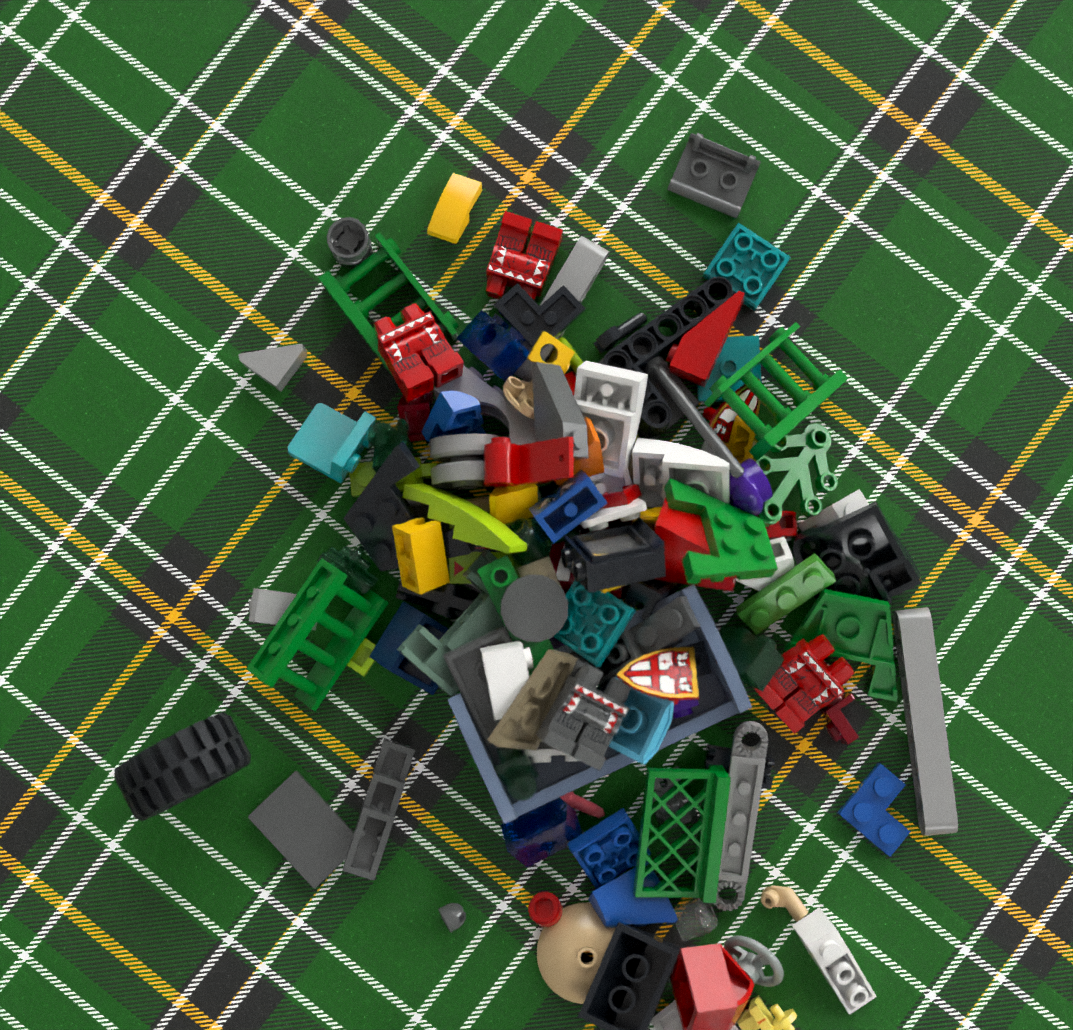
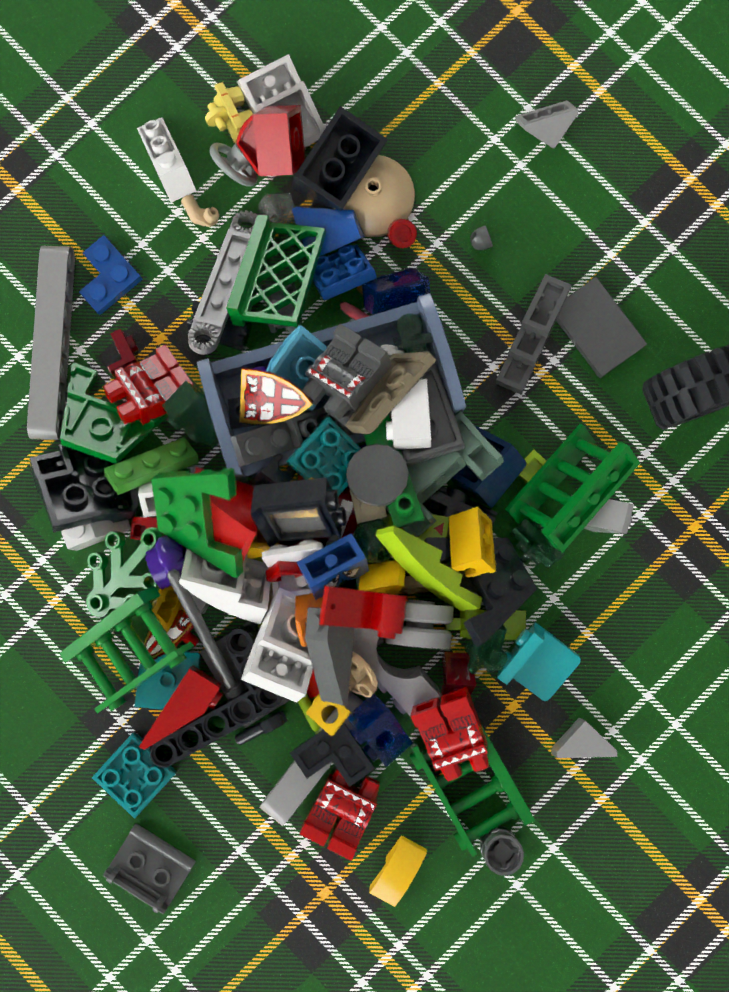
camera: 175 degrees left, 0 degrees up
(453, 415) = (423, 668): blue slope -> none

